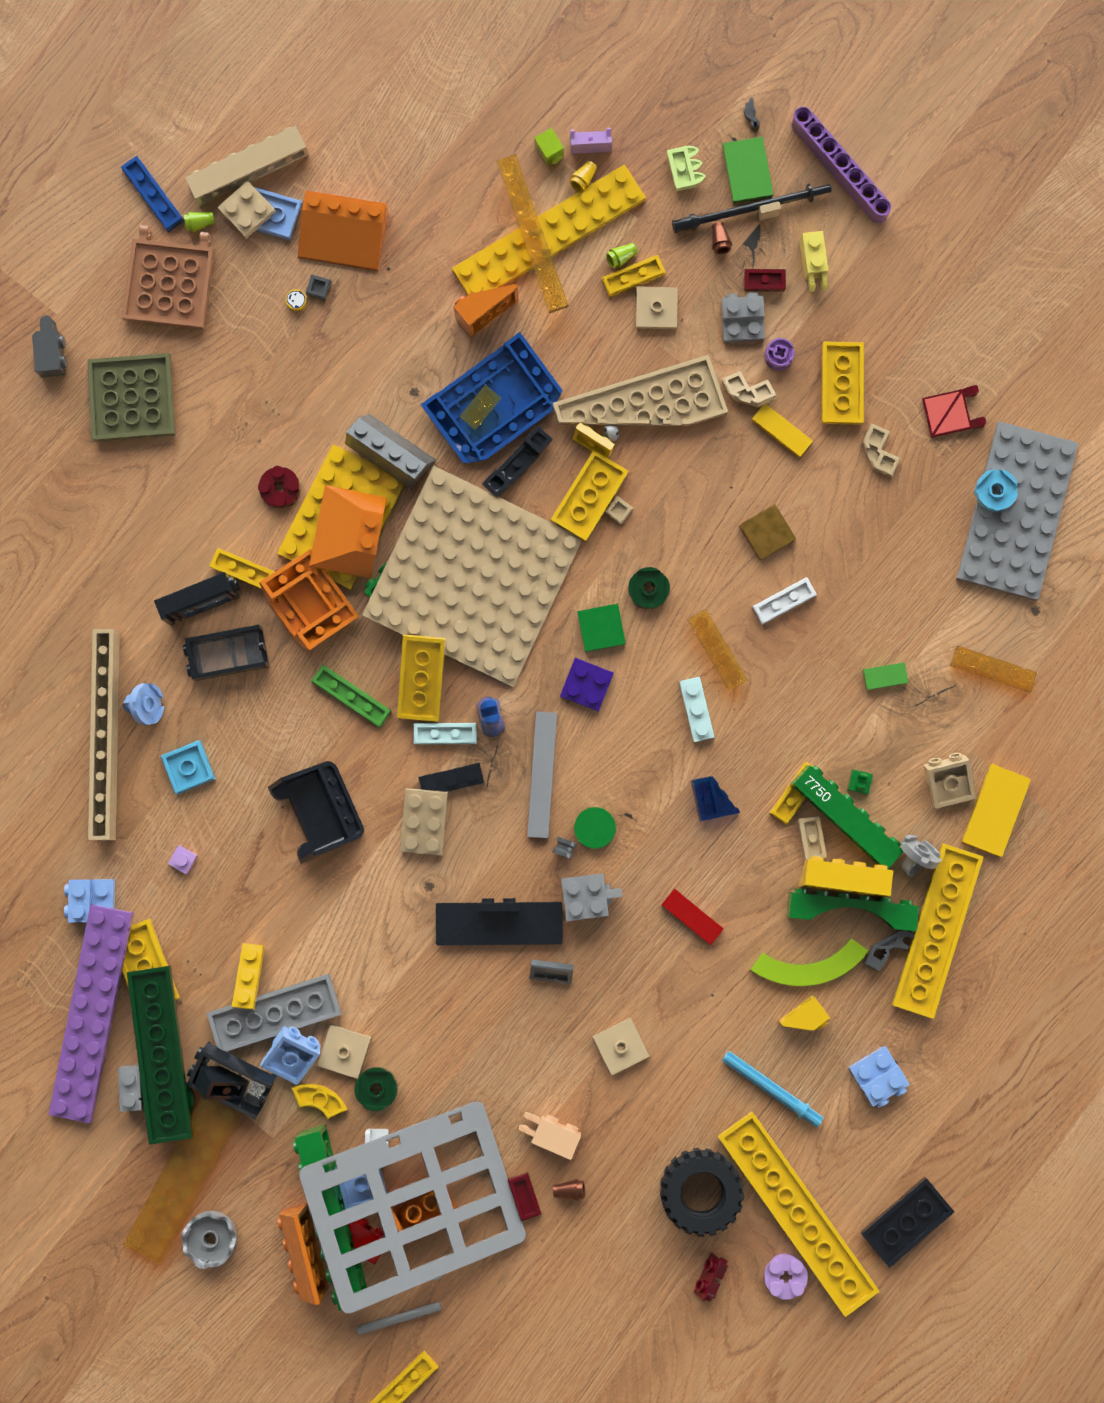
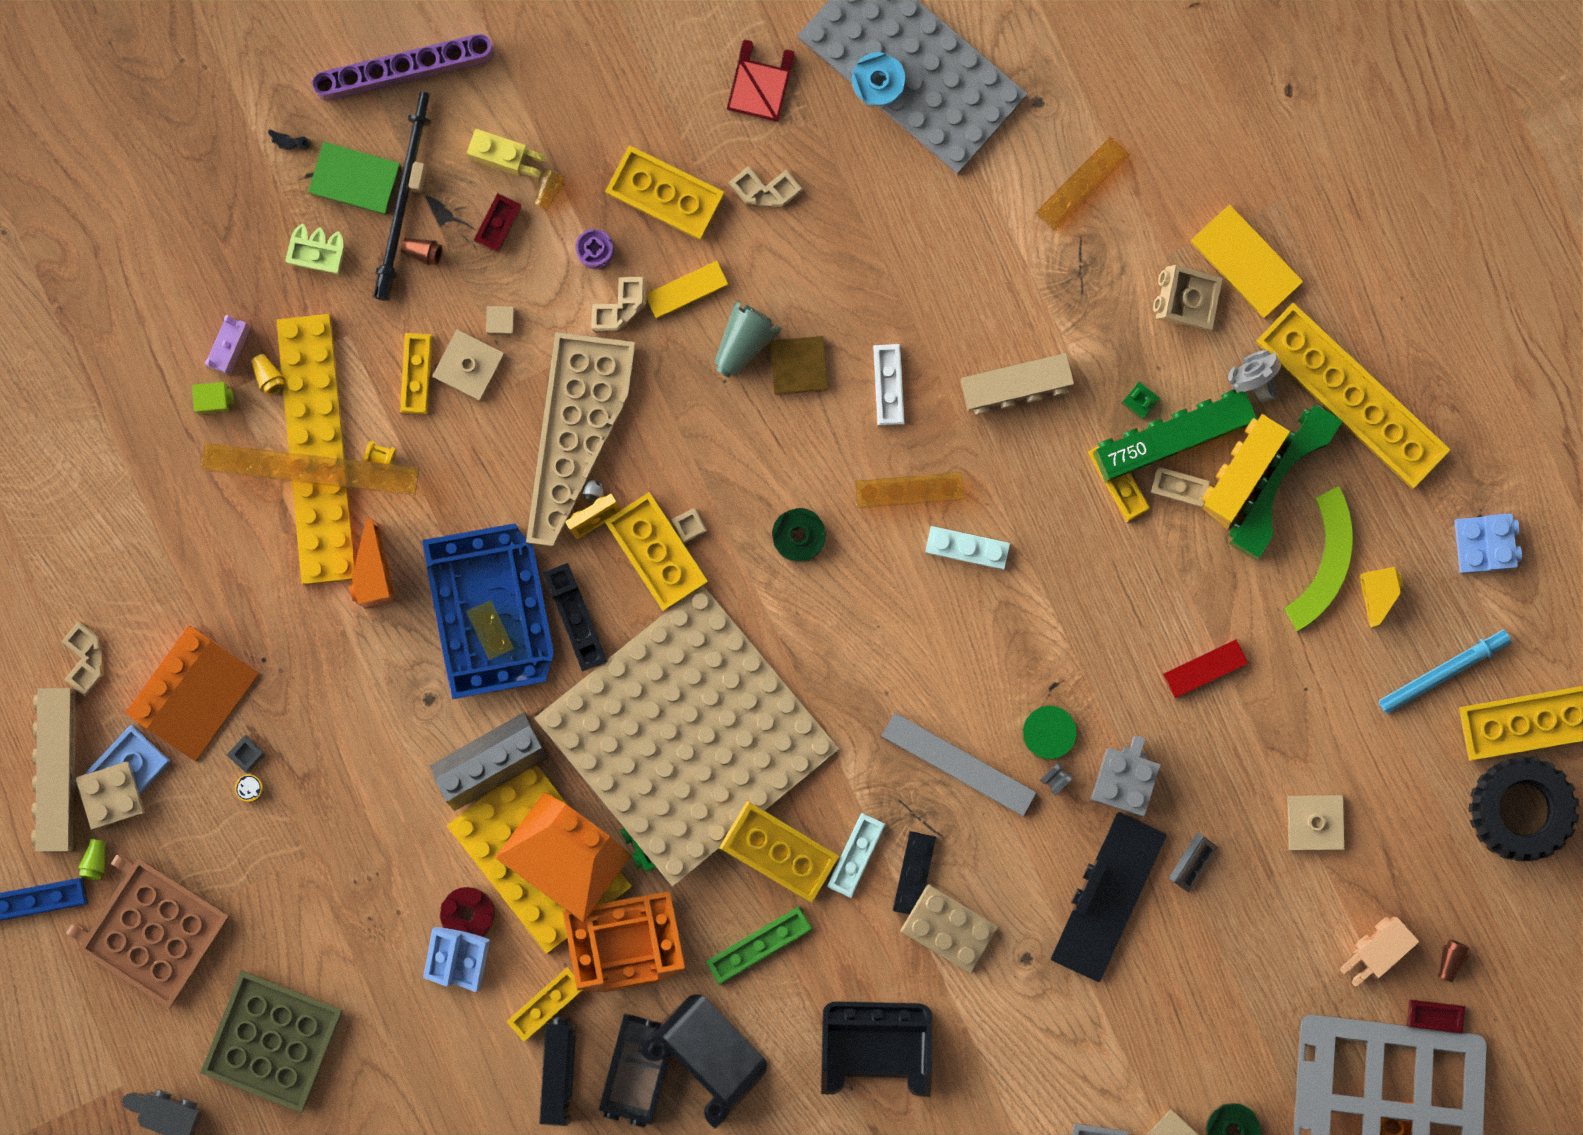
camera: 60 degrees left, 0 degrees up
(244, 493) = (456, 958): none -> light blue slope
(259, 697) = (710, 1052): none -> black windscreen
(325, 156) = (90, 668): none -> tan tile
(490, 717) = (861, 792): blue piece -> none
(565, 276) = (379, 454): none -> yellow bush
(586, 684) = (877, 661): dark purple plate -> none
(601, 627) = (818, 612): green tile -> none
(618, 256) = (384, 378): lime cone -> none
(698, 314) = (500, 320): none -> tan tile
(711, 799) = (1080, 582): clear blue wing -> none
(743, 318) = (530, 270): light grey plate -> none
(767, 484) = (743, 339): none -> sand green cone
(806, 302) = (548, 188): none -> clear yellow cone
(829, 688) = (1017, 383): none -> tan brick
(885, 676) = (1032, 311): bright green tile -> none
(894, 940) = (1340, 455): dark grey piece -> none

